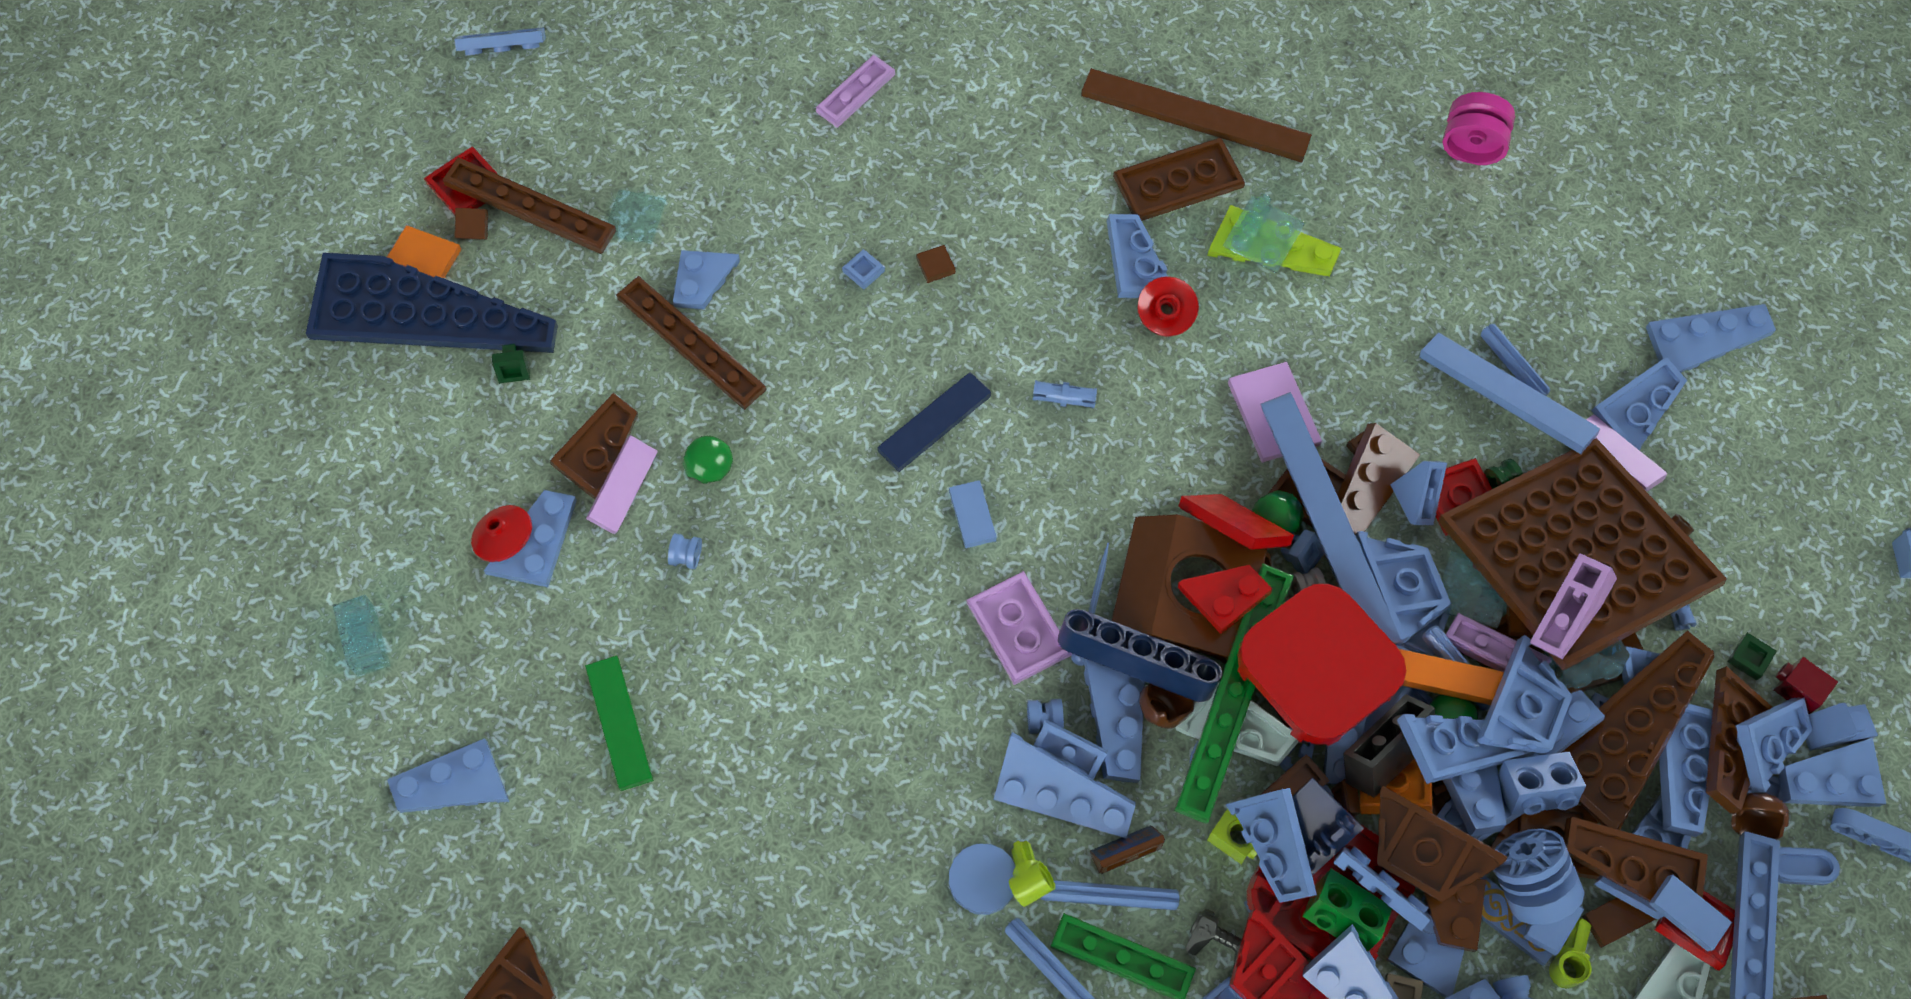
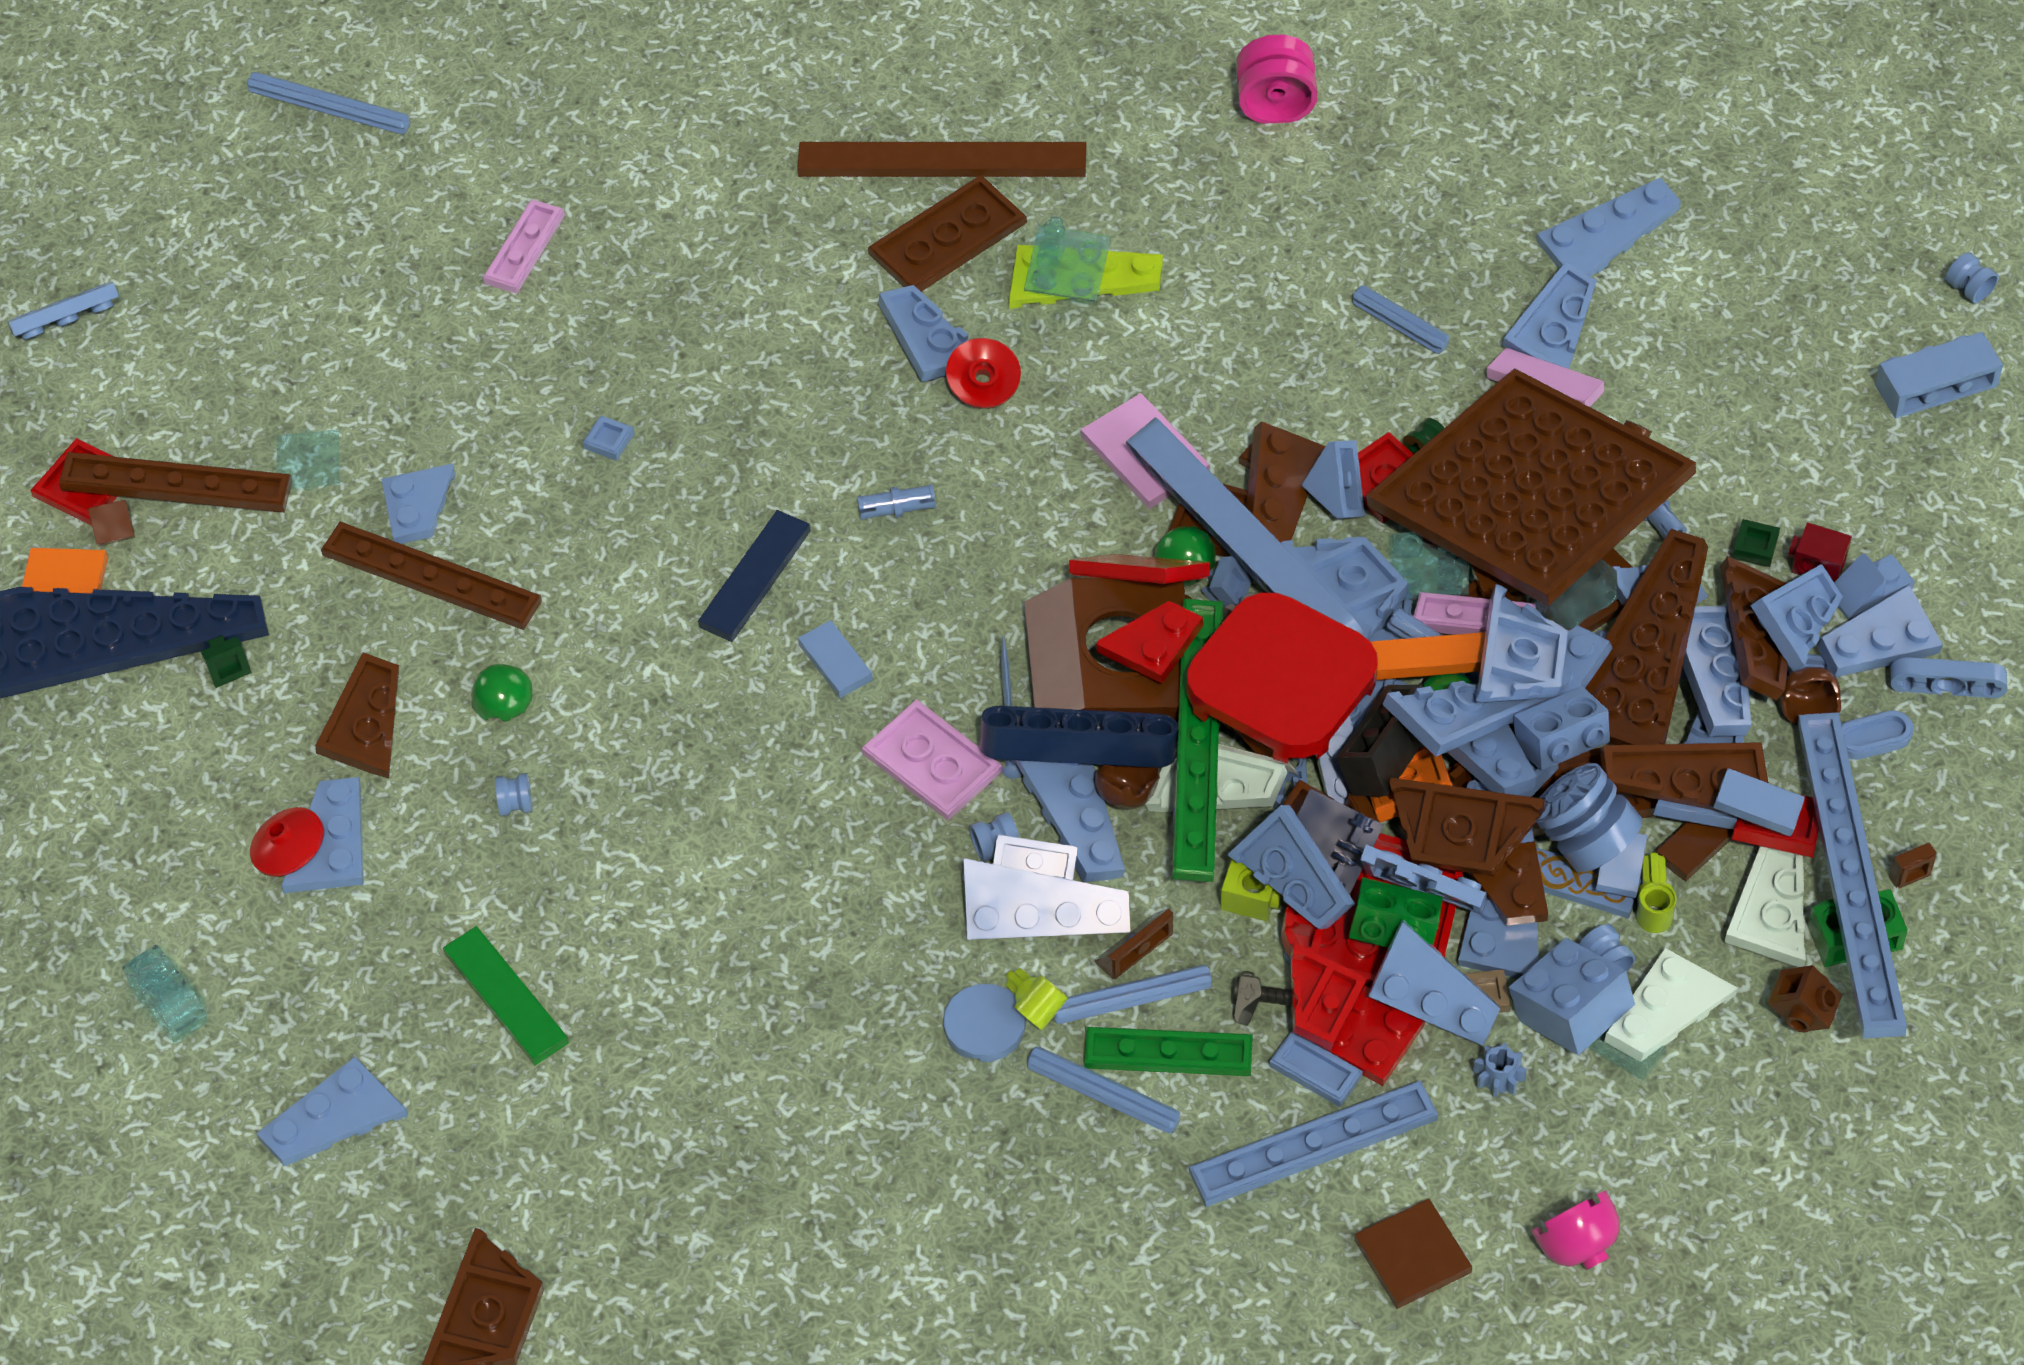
camera: 15 degrees left, 10 degrees down
(621, 485) = (410, 748): lavender tile -> none
(935, 263) = (692, 407): reddish brown tile -> none
(1510, 393) = (1402, 350): medium blue tile -> none
(1574, 605) = (1537, 530): lavender slope -> none

